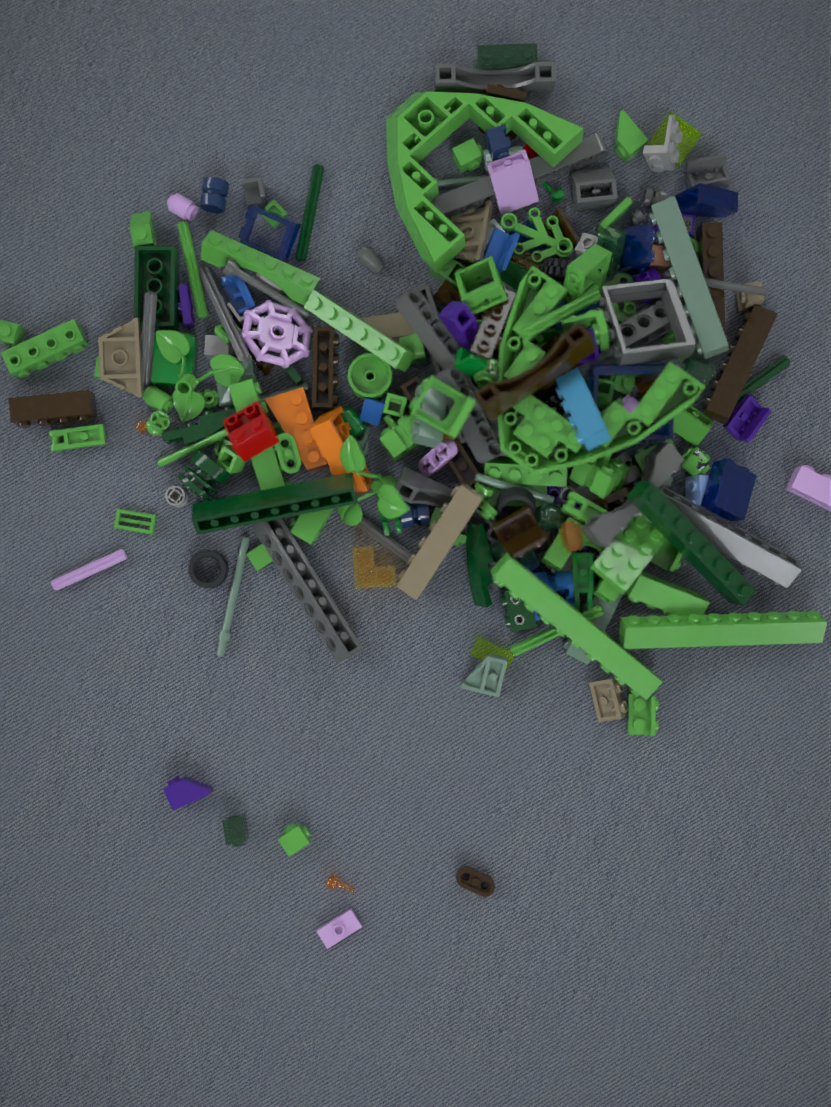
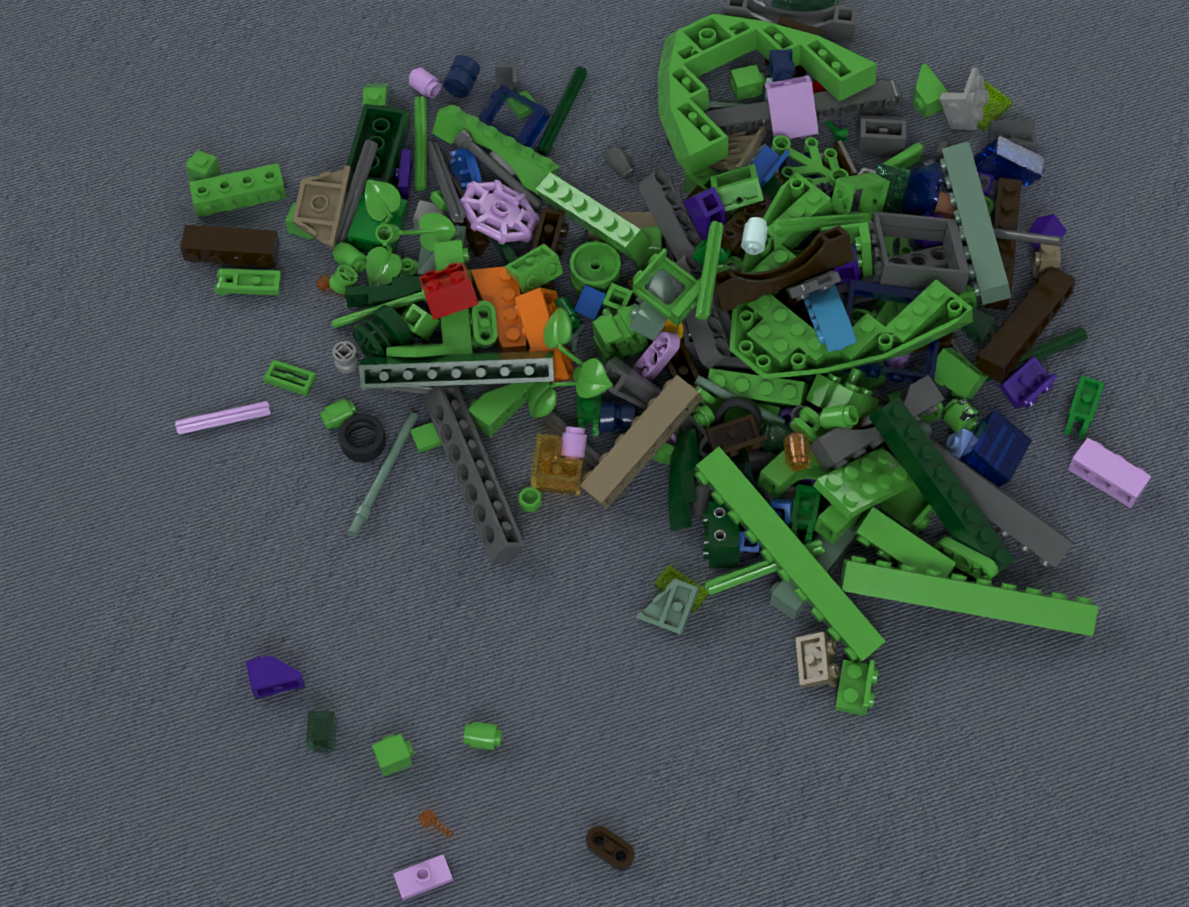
camera: 10 degrees right, 25 degrees down
(183, 551) = (337, 413): none -> bright green brick
(239, 489) = (420, 350): none -> bright green tile
(319, 392) = (535, 268): none -> bright green bracket
(357, 599) = (530, 499): none -> bright green tile
(361, 810) = (482, 735): none -> bright green brick
(383, 547) = (573, 443): none -> lavender brick
(475, 391) = (709, 270): none -> bright green axle
(506, 342) = (754, 236): none -> light aqua brick
(566, 383) = (820, 282): none -> dark grey wing
(602, 502) = (839, 416): none -> bright green brick
(715, 593) = (967, 559): none -> bright green beam
(746, 268) = (1047, 226): none -> dark purple brick
(793, 430) = (1084, 405): none -> green hinge

